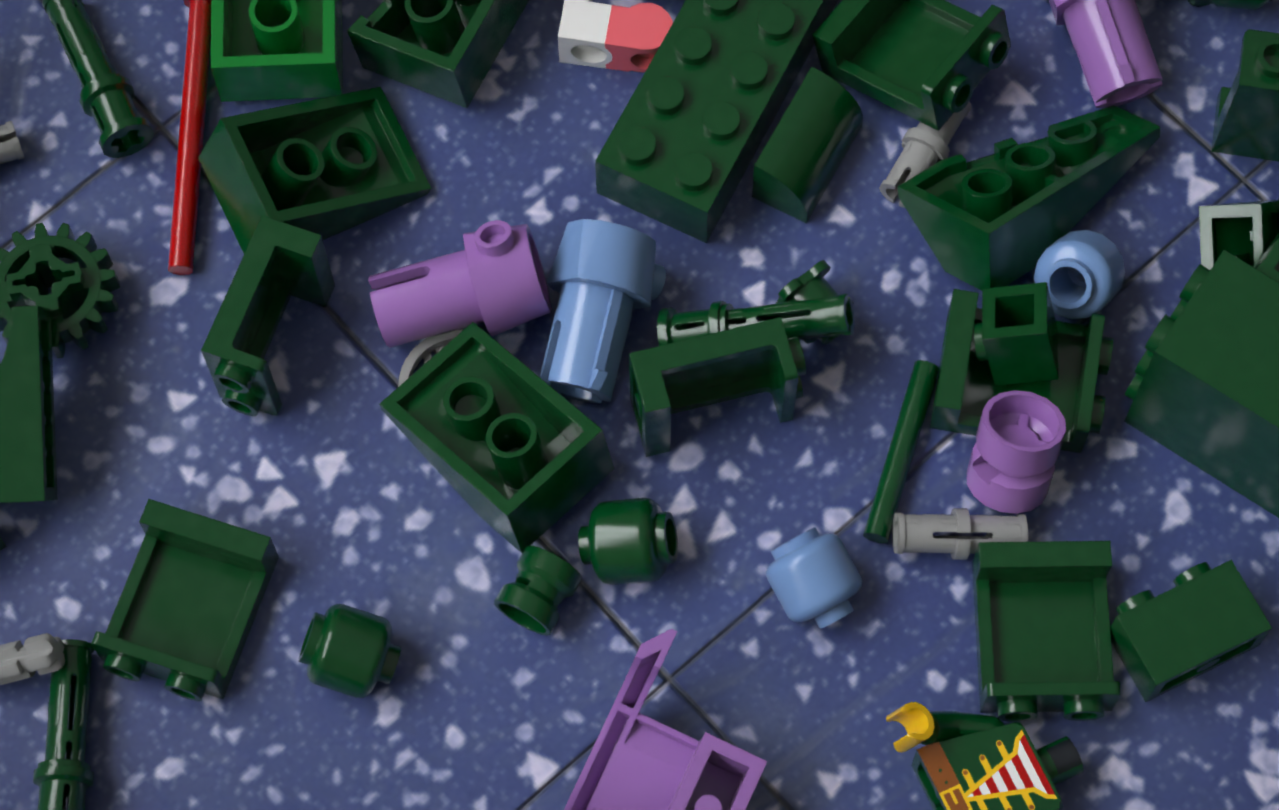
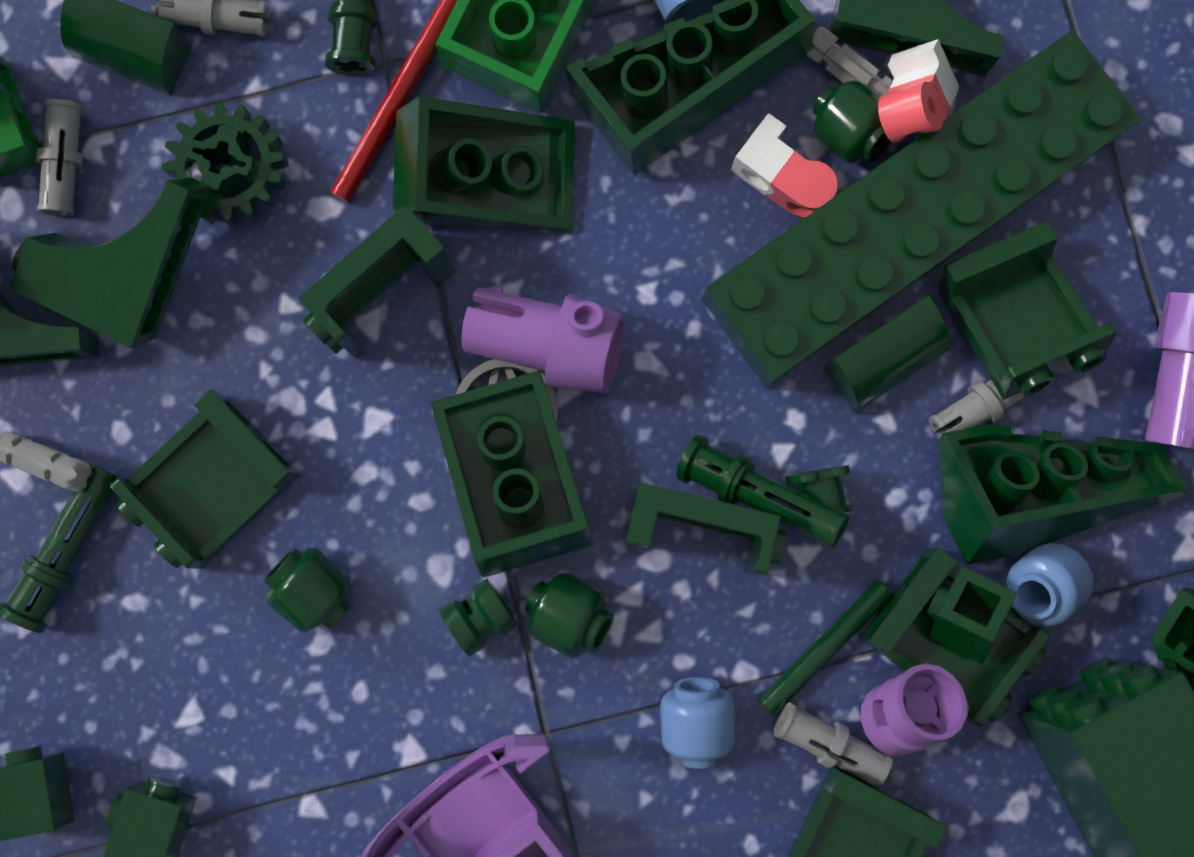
camera: 25 degrees right, 15 degrees up
(601, 279) = (658, 391): medium blue piece -> none

